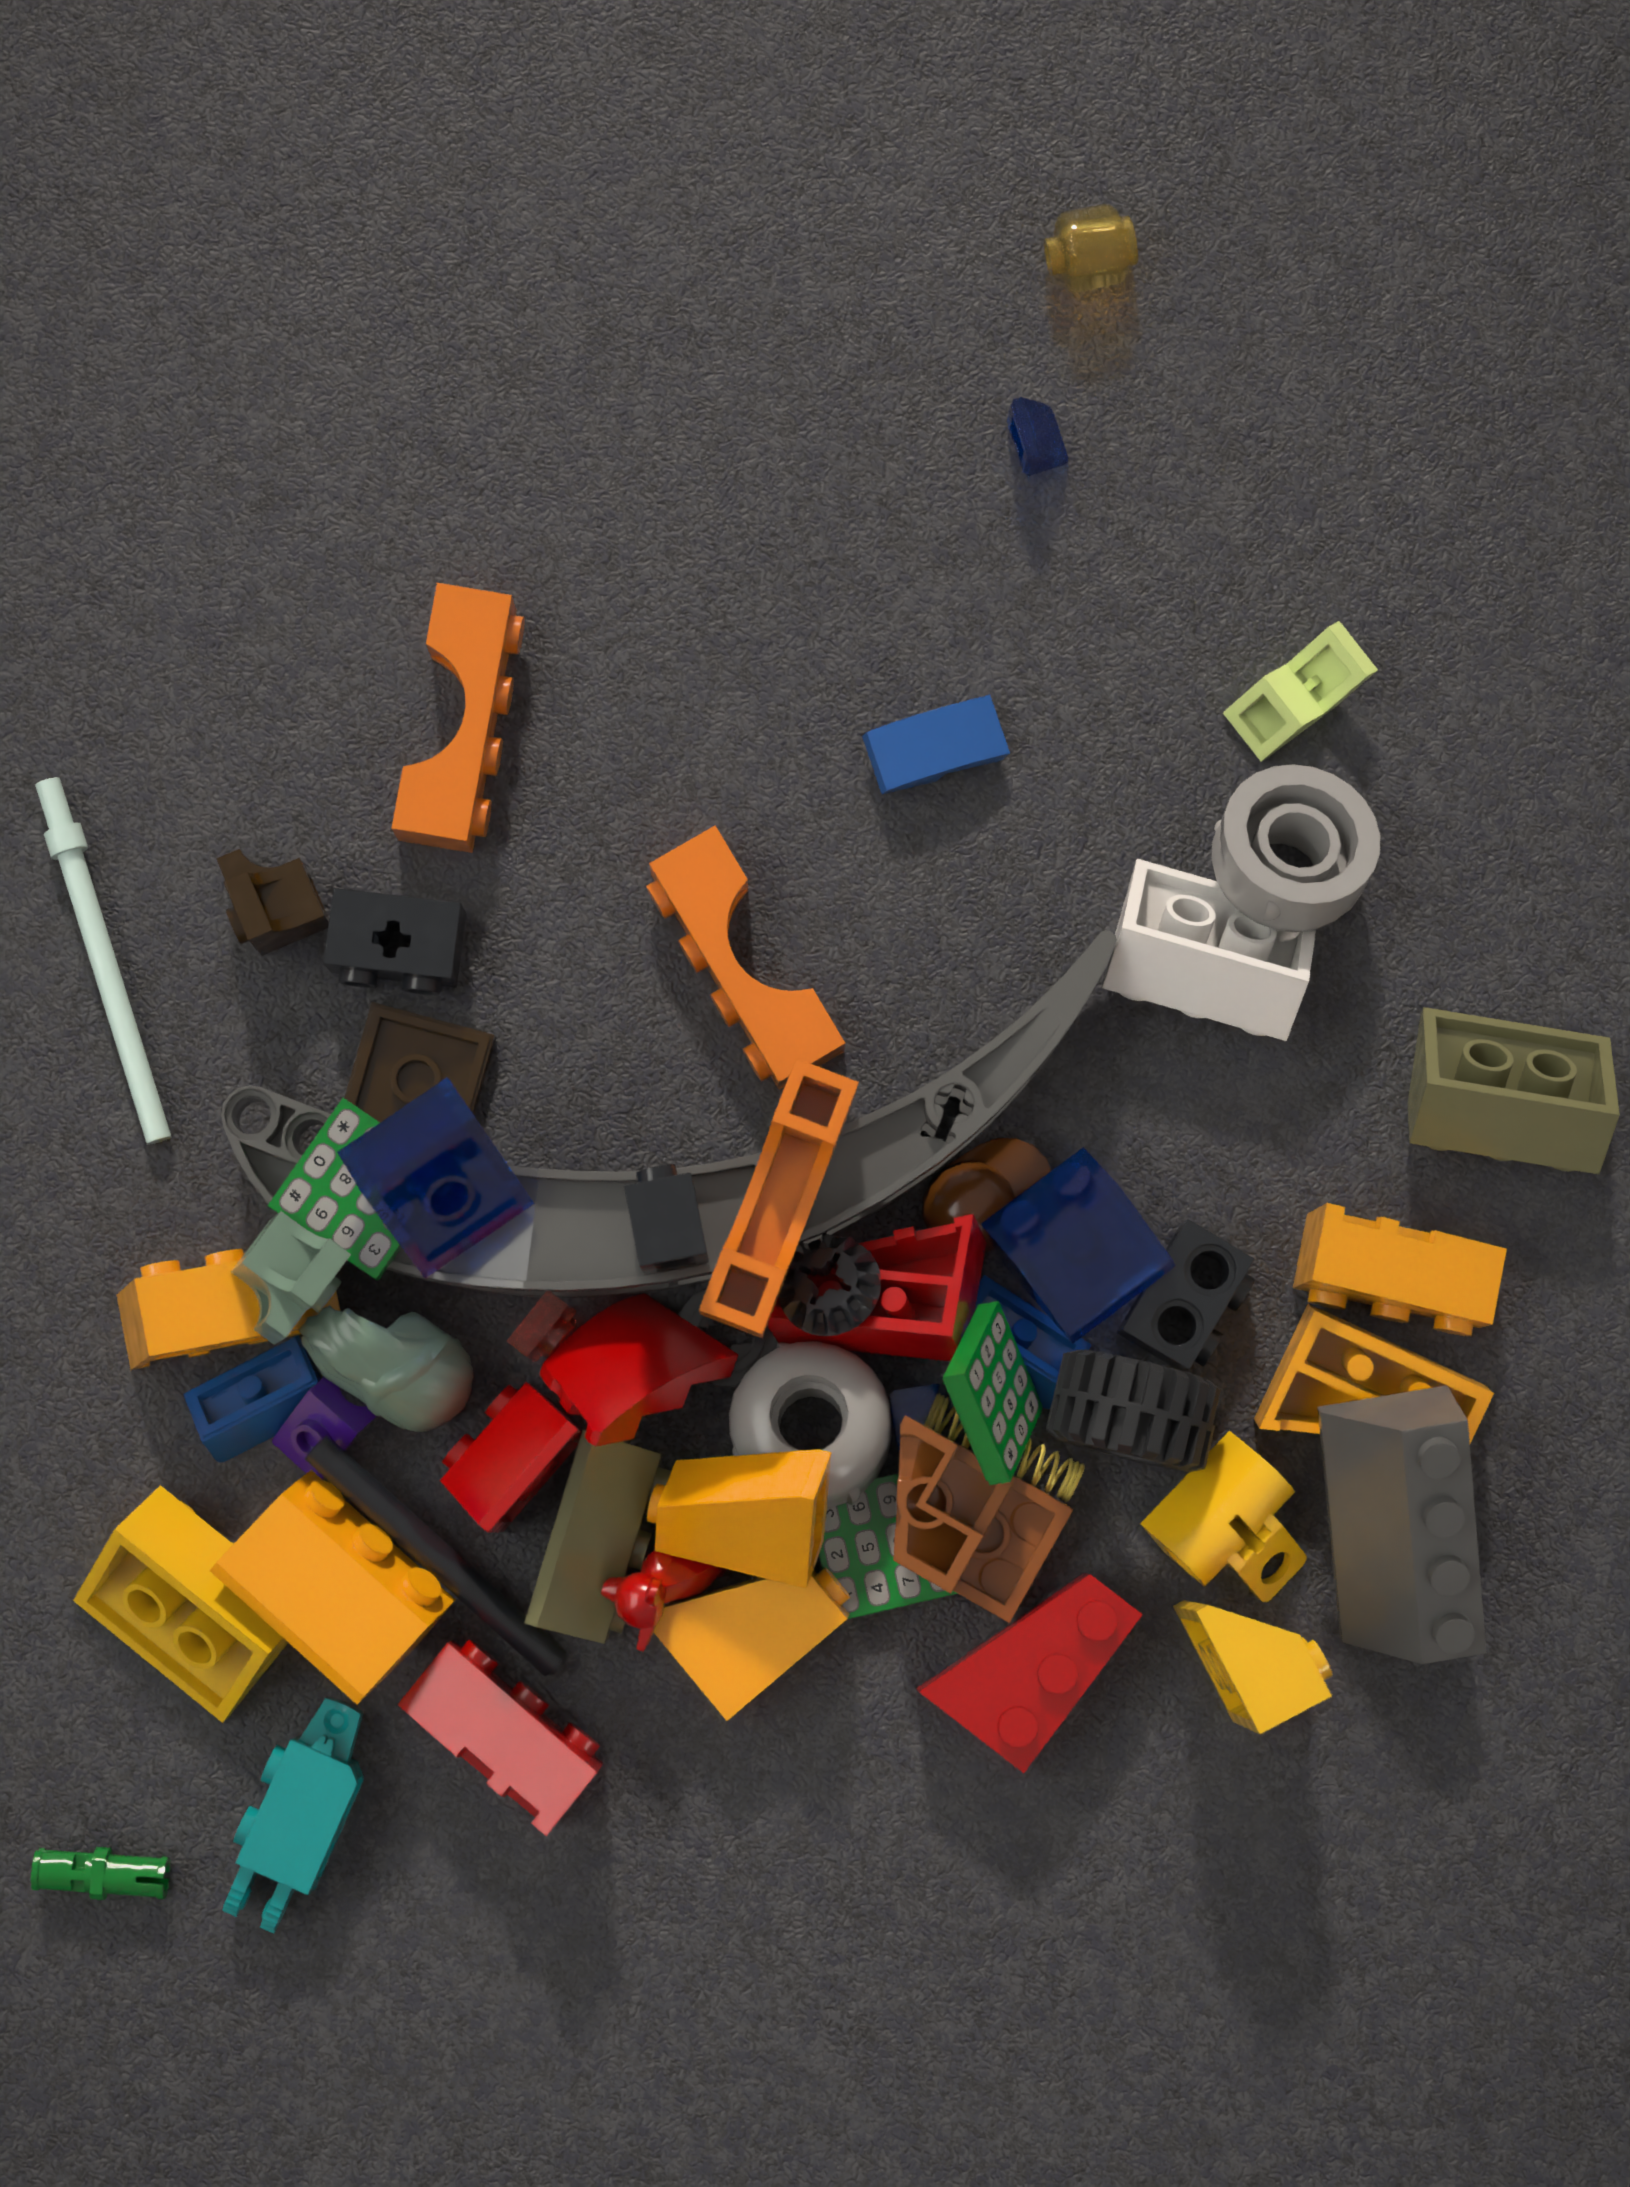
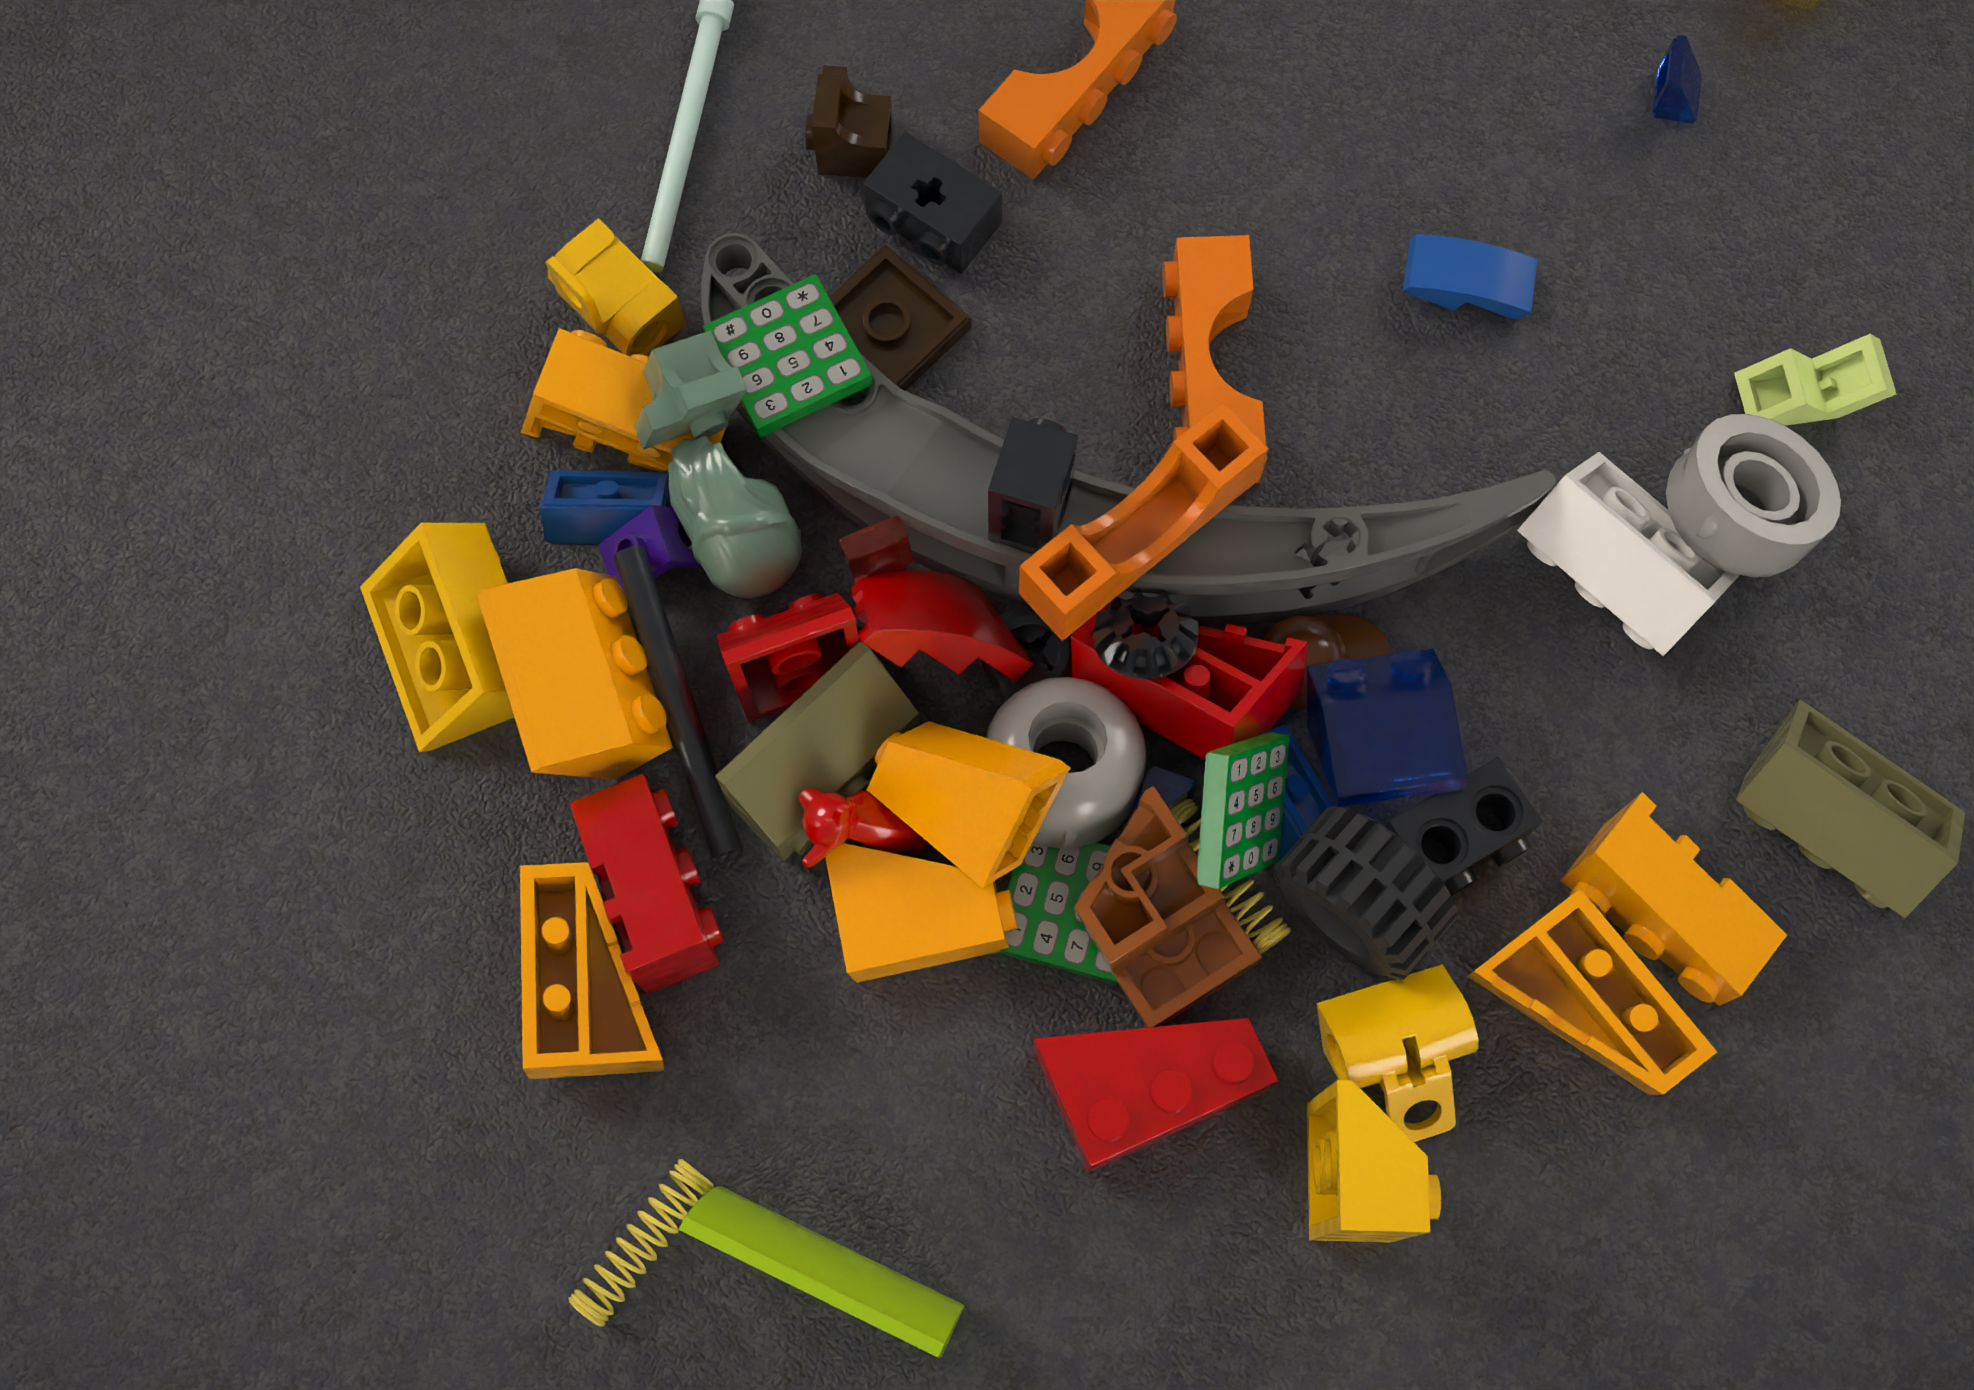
camera: 35 degrees right, 10 degrees down
(100, 1873) = (239, 818): green pin -> none
(143, 1193) = (615, 291): none -> yellow piece
(301, 1813) = (433, 857): teal hinge -> none
(435, 1178) = (854, 365): clear blue slope -> none
(494, 1857) = (575, 993): none -> light orange wedge
(695, 1963) = (586, 1305): none -> light yellow piece
(847, 1980) = (824, 1269): none -> lime slope
(1403, 1525) = (1570, 1130): dark grey slope -> none

